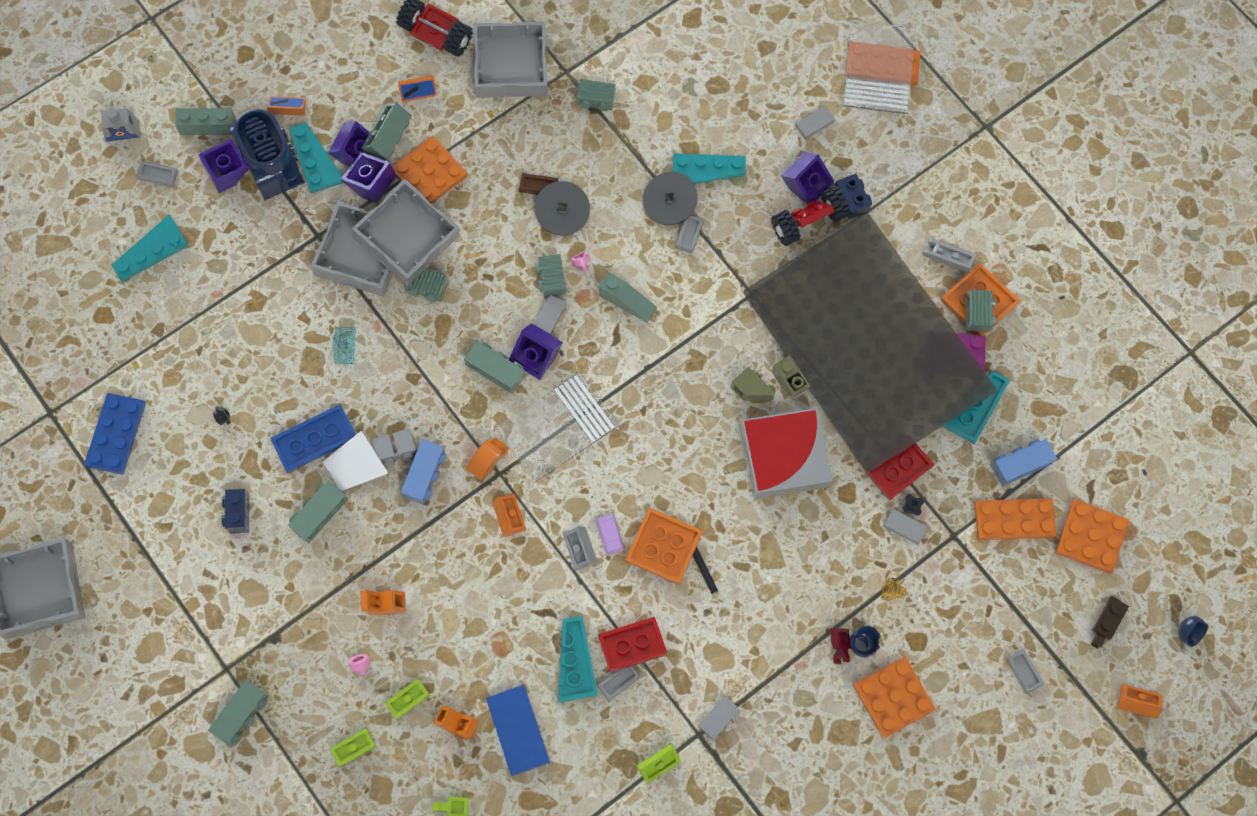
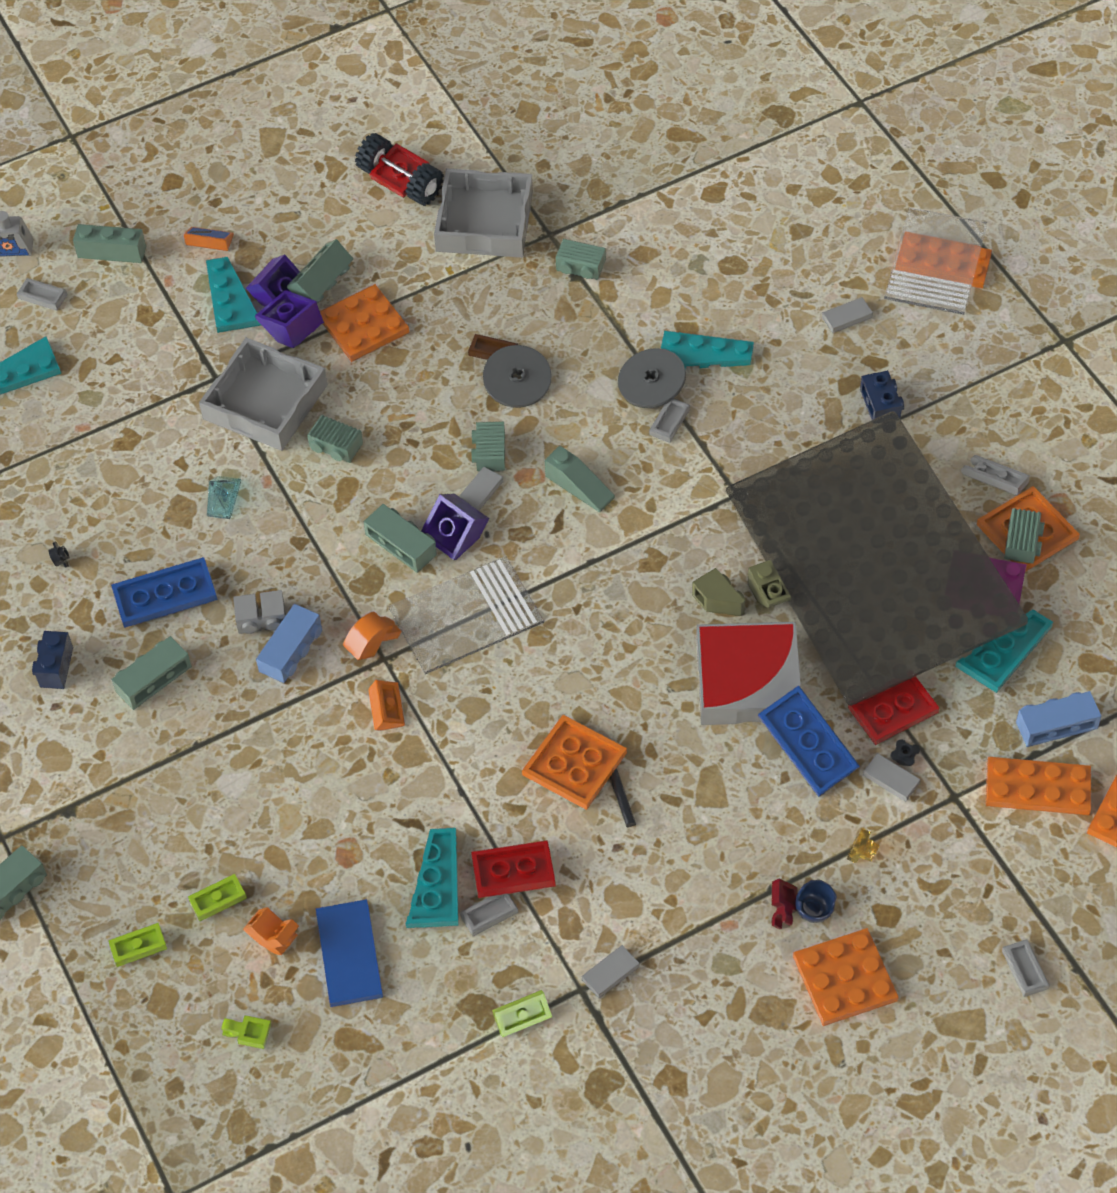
camera: 15 degrees right, 15 degrees down
(224, 165) = (120, 289): dark purple slope -> none
(267, 152) = (173, 278): dark blue brick -> none
(354, 463) = (207, 623): white sticker -> none
(359, 663) = (166, 849): bright pink tile -> none
(383, 603) = (208, 784): orange brick -> none
(405, 232) = (319, 375): light grey tile -> none
(417, 88) = (366, 233): slope -> none
(580, 548) = (468, 752): light grey slope -> none
(581, 260) = (529, 433): bright pink tile -> none
(610, 534) = (509, 742): lavender tile -> none
(808, 177) = (828, 372): dark purple slope -> none
(833, 205) = (853, 398): black plate -> none
(841, 507) = (808, 741): none -> blue tile

